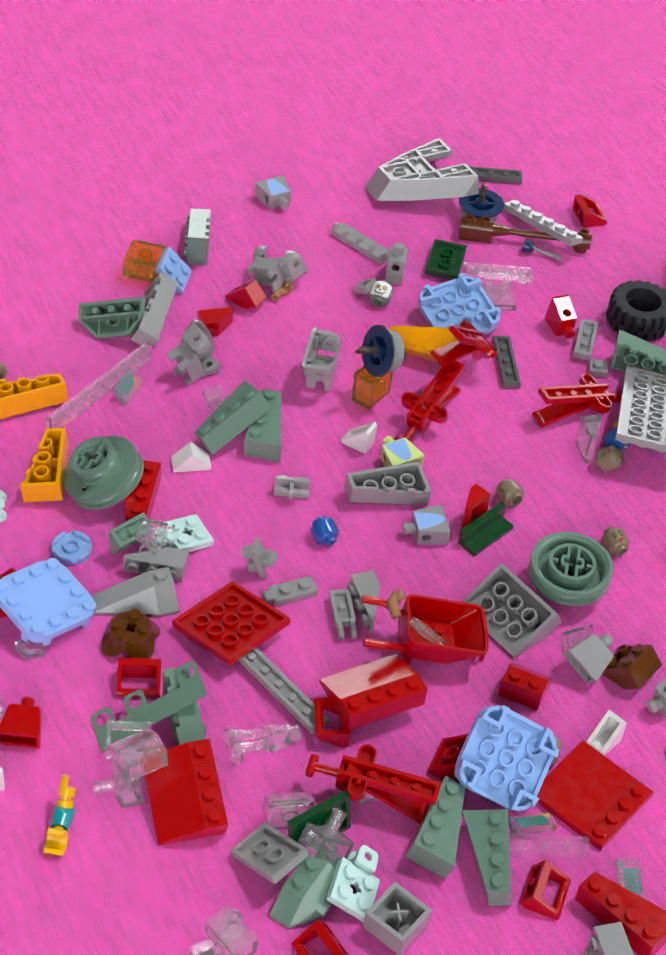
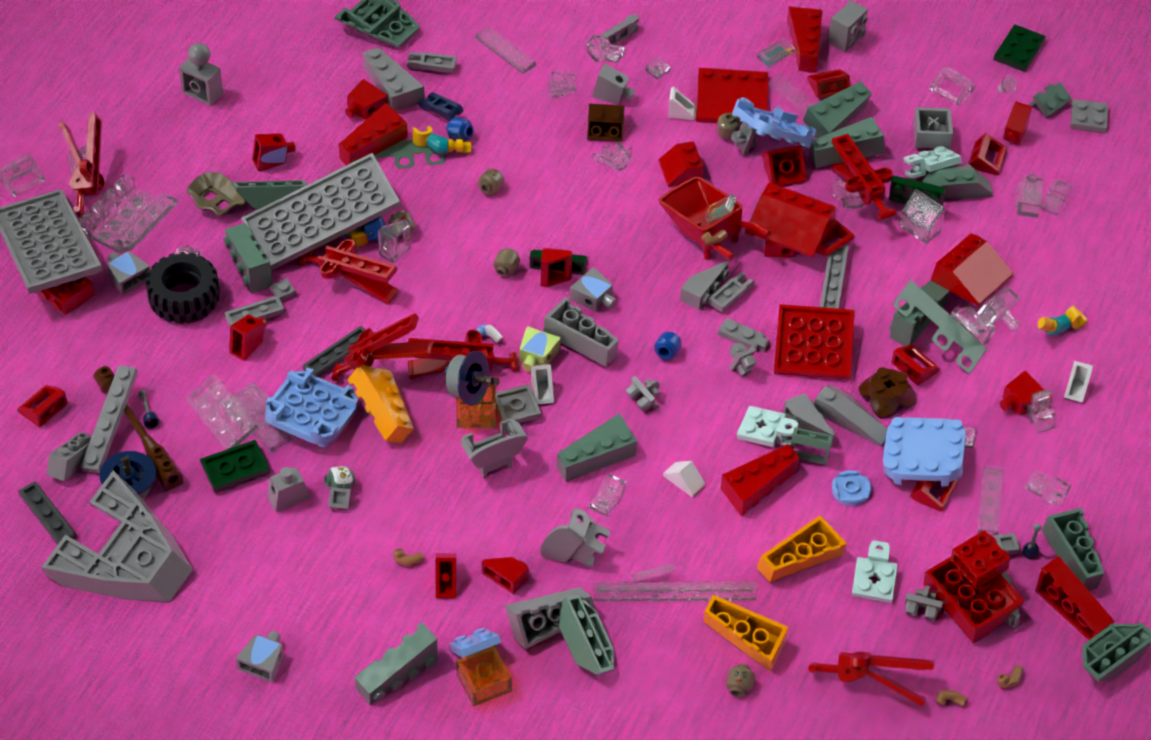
camera: 125 degrees left, 5 degrees up
(106, 468) = (774, 500): sand green wheel -> none
(138, 754) = (987, 292): clear slope -> none
(153, 534) = (805, 418): clear piece -> none
(232, 417) = (619, 458): sand green wedge -> none
(269, 853) = (963, 205): light grey plate -> none
(271, 736) = (880, 264): clear piece -> none
(276, 271) = (388, 568): light grey piece -> none
(327, 841) = (932, 175): clear brick -> none
(355, 413) = (517, 404): none -> light grey plate
(360, 242) = (269, 545): light grey hinge -> none
(449, 443) = (489, 330): none -> white arm
(513, 611) = (626, 203): light grey slope -> none
(526, 193) = (68, 457): none -> light grey slope
(532, 823) = (790, 106): clear tile -> none
(572, 554) = (564, 175): sand green wheel -> none
(590, 656) = (627, 136): light grey torso -> none

